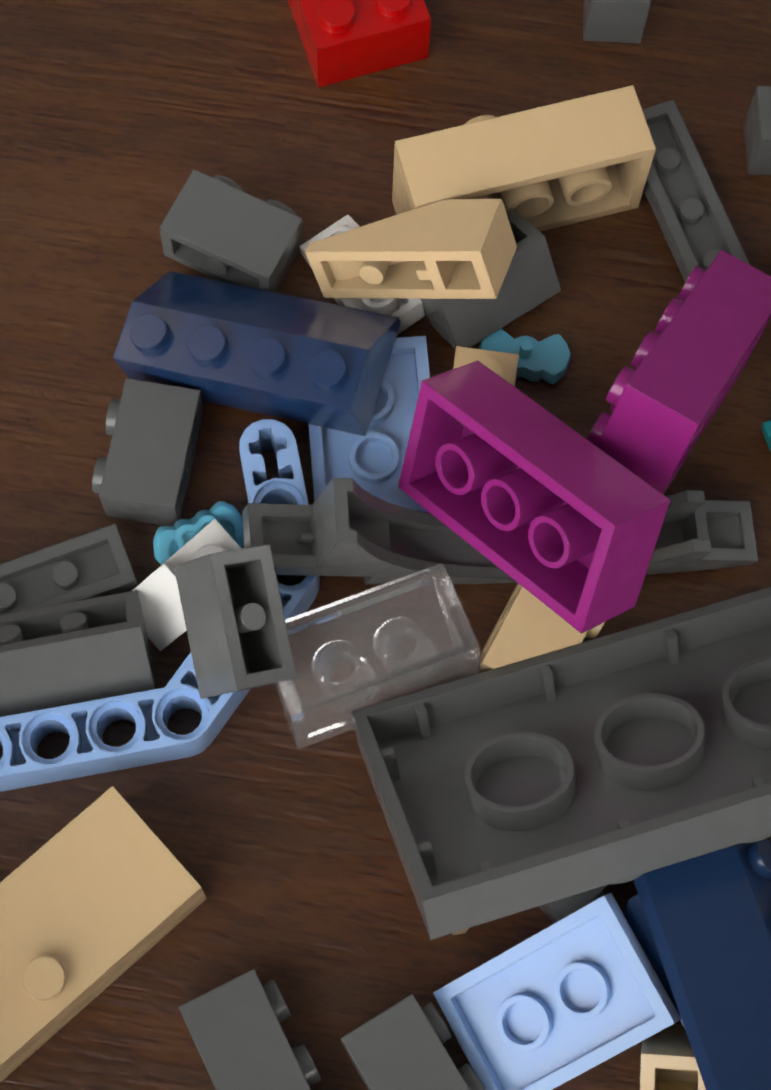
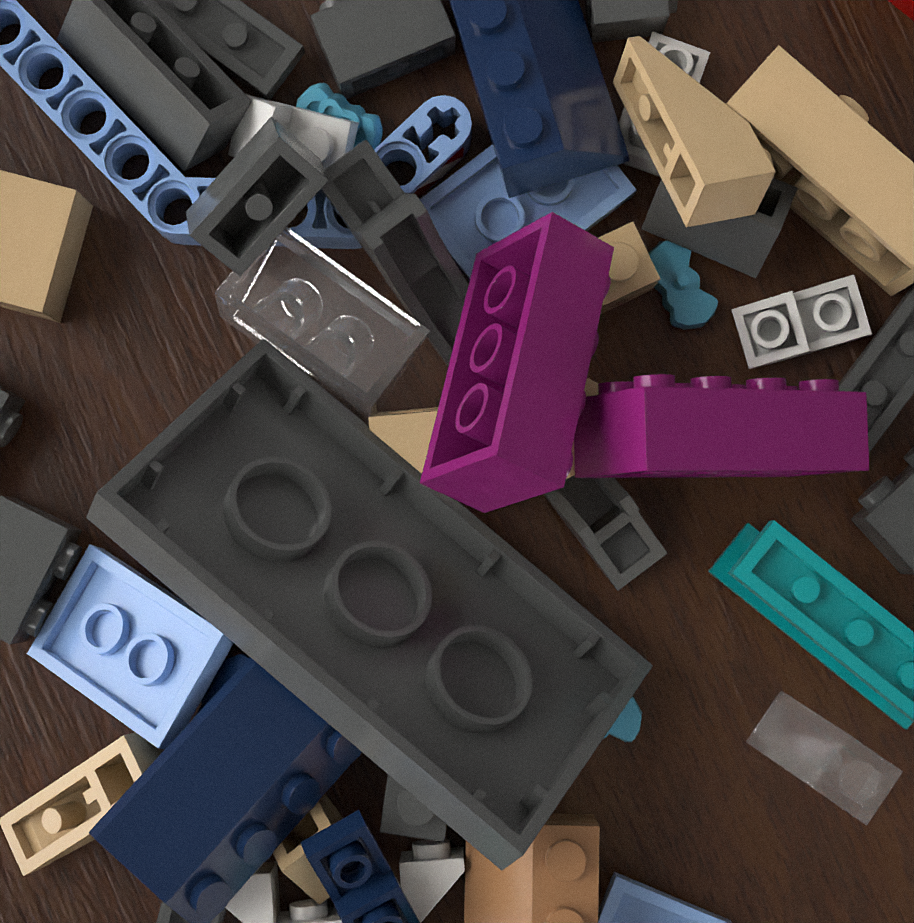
camera: 60 degrees right, 15 degrees up
(618, 282) = (801, 322): none -> white slope

